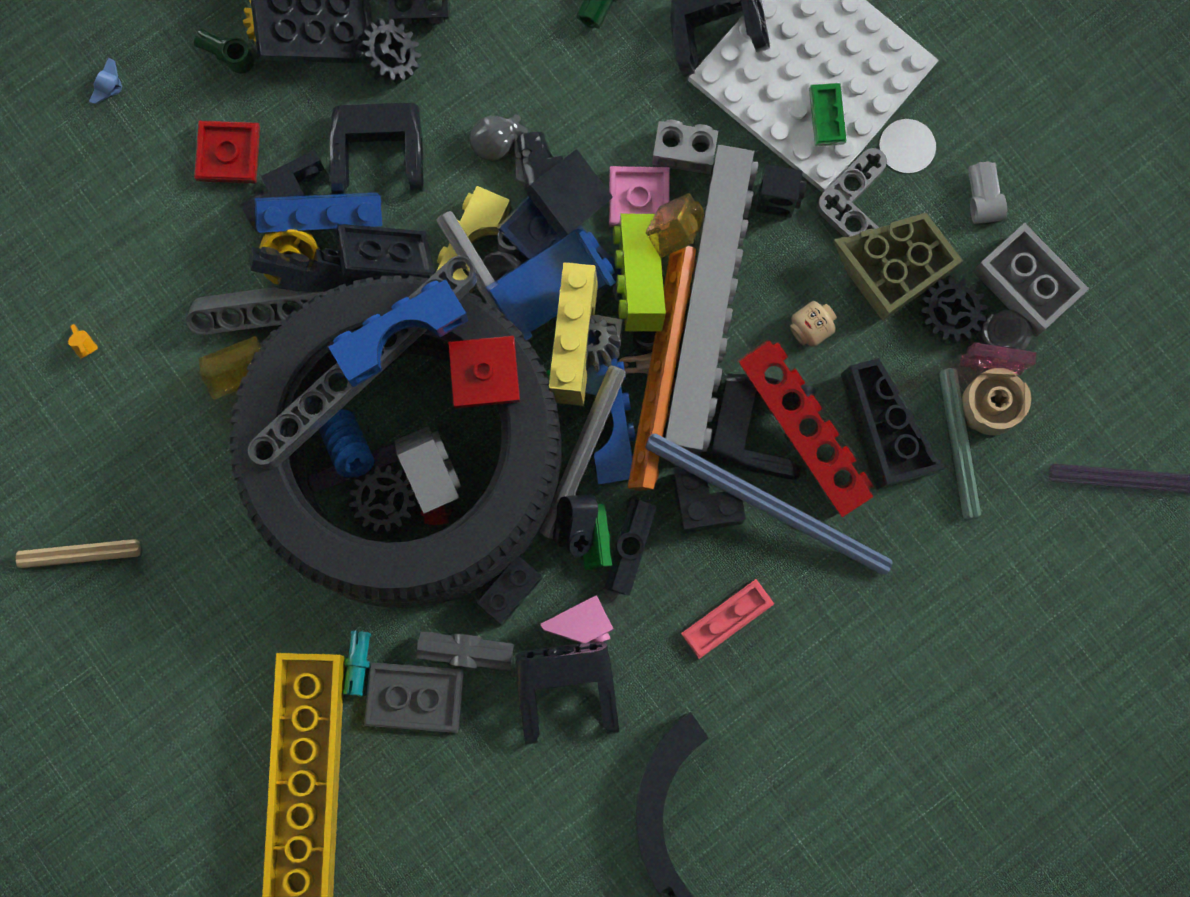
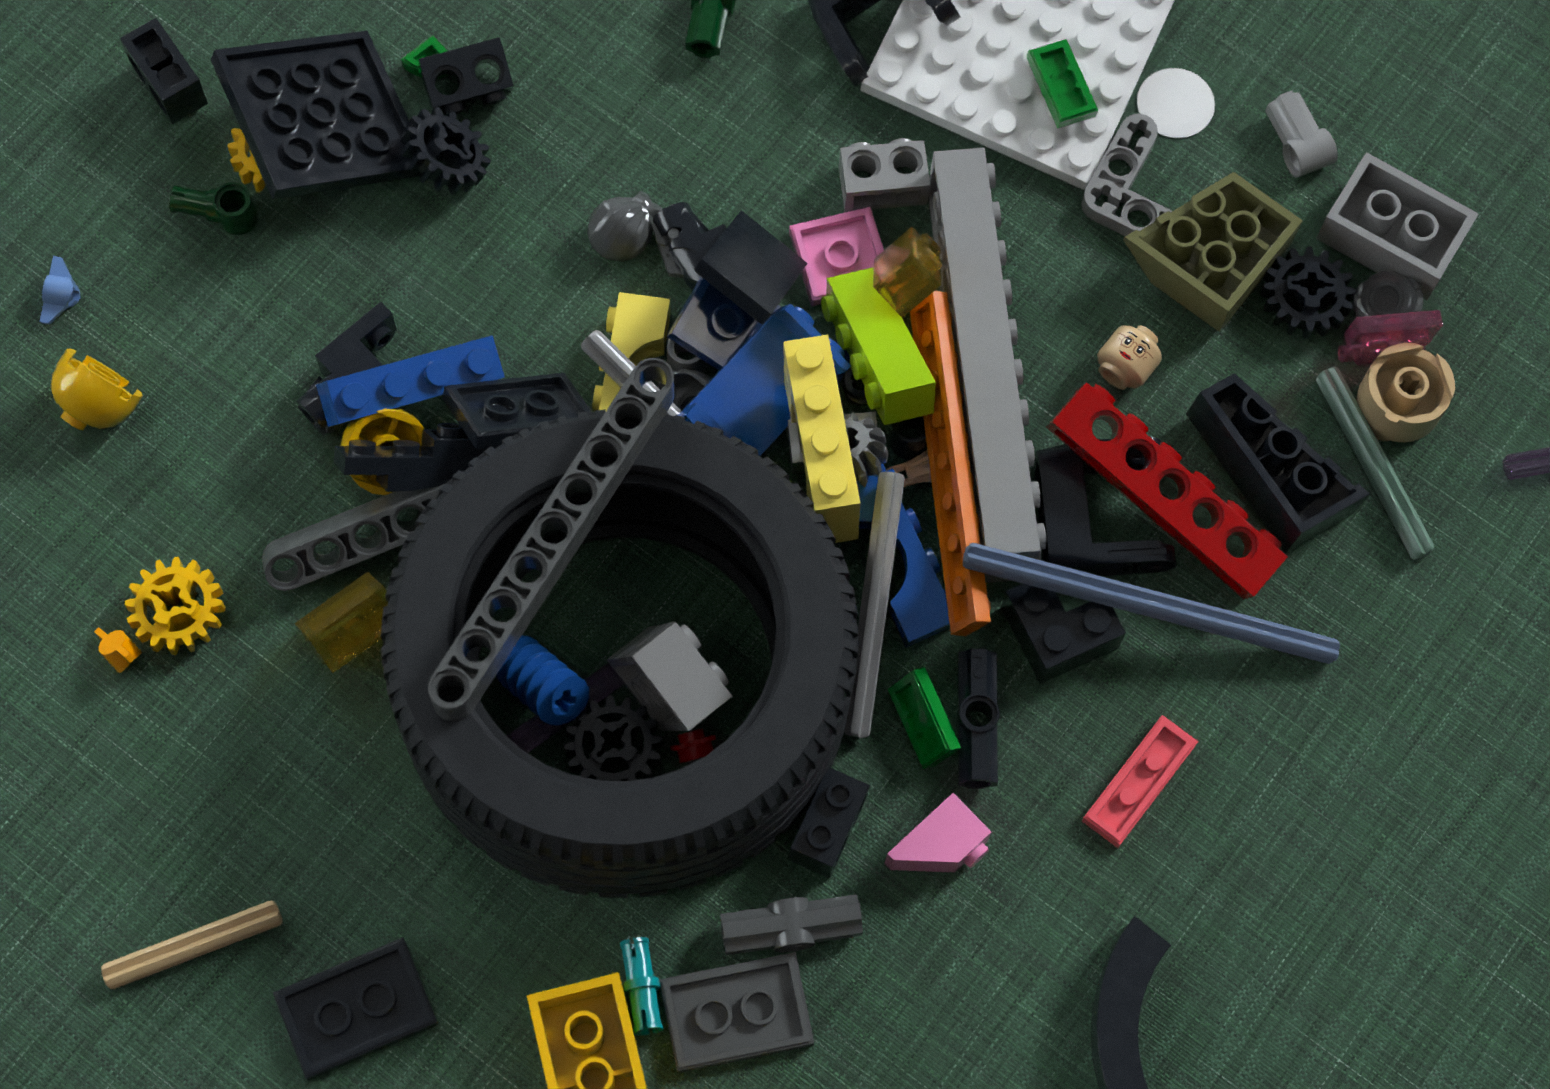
camera: 20 degrees left, 10 degrees down
(108, 161) = (91, 393): none -> yellow cylinder
(116, 334) = (170, 587): none -> yellow gear
(171, 625) = (355, 1008): none -> black tile
(227, 152) = (255, 339): red plate -> none
(361, 351) = (637, 435): blue arch -> none
(374, 124) = (454, 250): black connector -> none
(484, 372) = (723, 508): red plate -> none
(564, 667) = (938, 903): black connector -> none
(574, 520) = (890, 701): black piece -> none
(780, 191) = (1031, 195): black brick -> none

